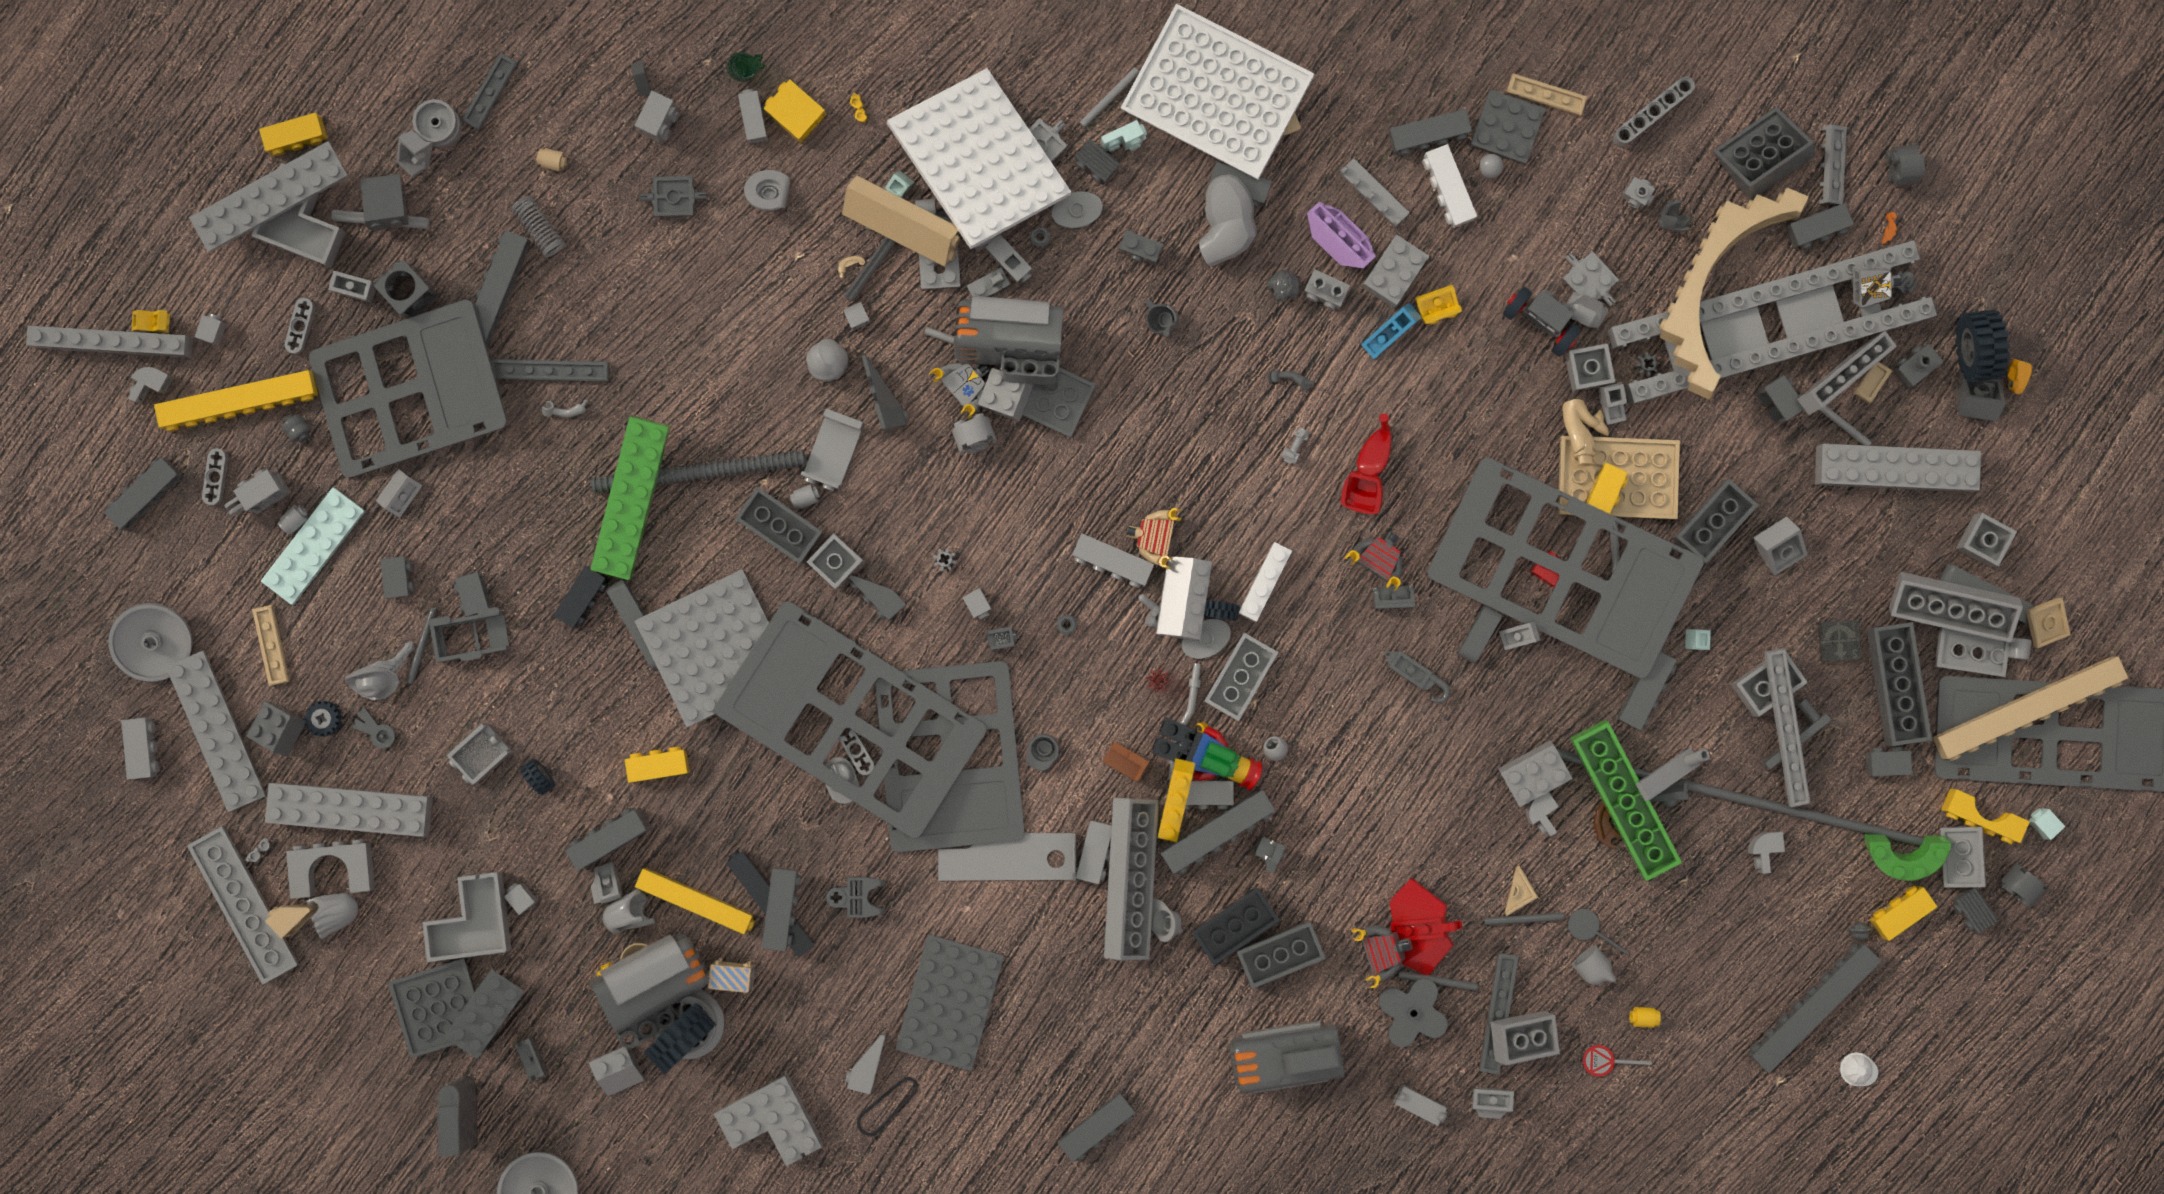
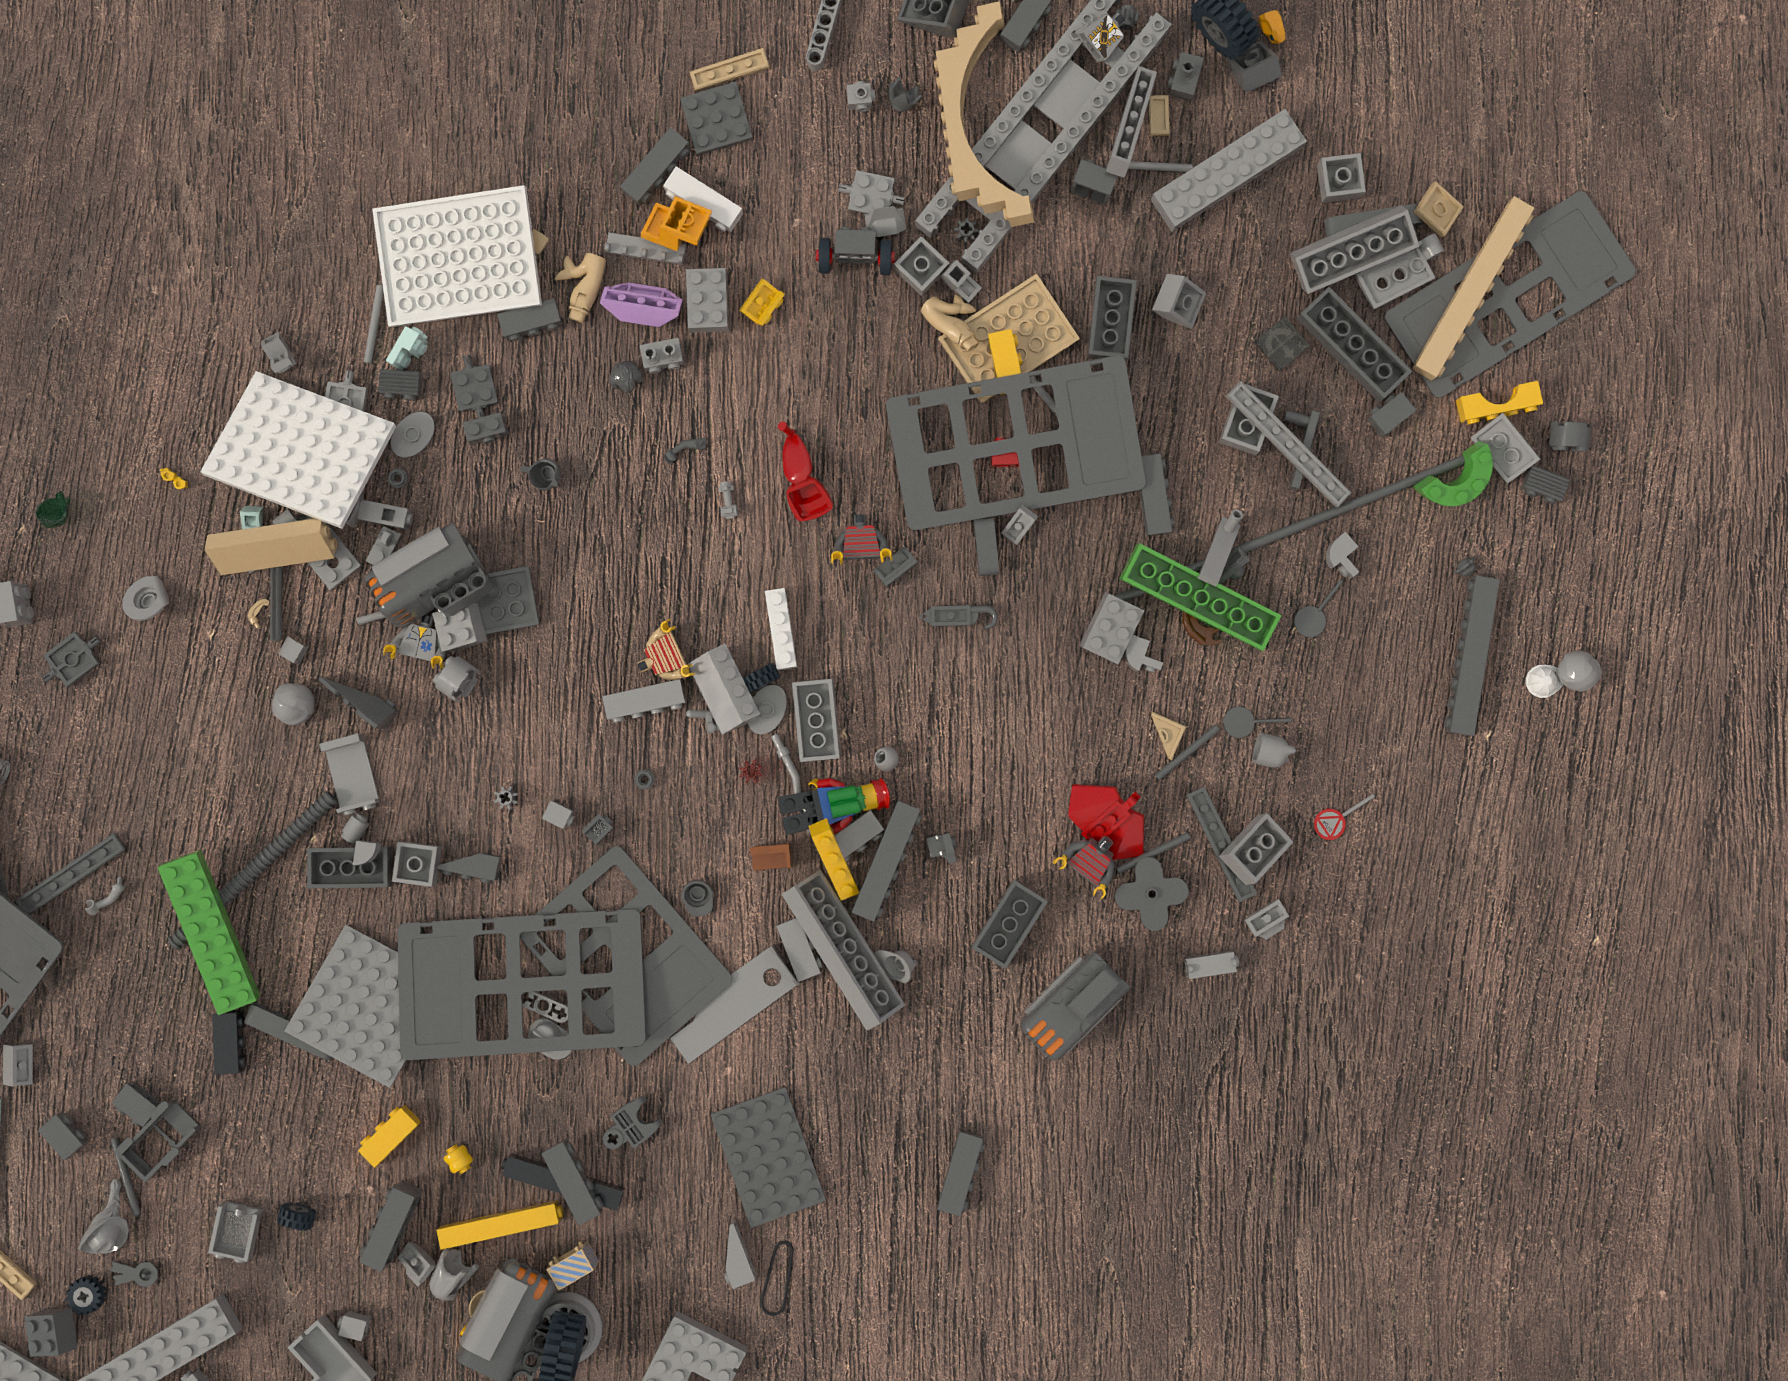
camera: 30 degrees left, 0 degrees up
(699, 824) = (458, 1159): none -> yellow piece
(753, 116) = (90, 547): light grey brick -> none
(794, 110) = (121, 518): yellow brick -> none
(803, 523) = (365, 852): none -> light grey brick
(1016, 66) = (278, 353): none -> light grey brick
(1154, 207) = (474, 387): none -> dark grey plate
(1231, 220) = (542, 352): light grey piece -> none
(1235, 925) = (956, 927): black brick -> none
(1304, 192) = (588, 288): none -> tan piece
(1391, 330) = (739, 350): dark azure slope -> none
(1414, 191) = (676, 223): none -> light orange bracket
(1491, 166) = (725, 159): light grey piece -> none
(1645, 1017) = (1342, 762): yellow brick -> none
(1697, 639) = (1166, 424): light aqua slope -> none
(1702, 884) = (1311, 620): none -> dark grey piece
(1893, 1082) = (1579, 671): none -> light grey piece
(1902, 912) = (1489, 527): yellow brick -> none
(2046, 823) = (1552, 373): light aqua brick -> none

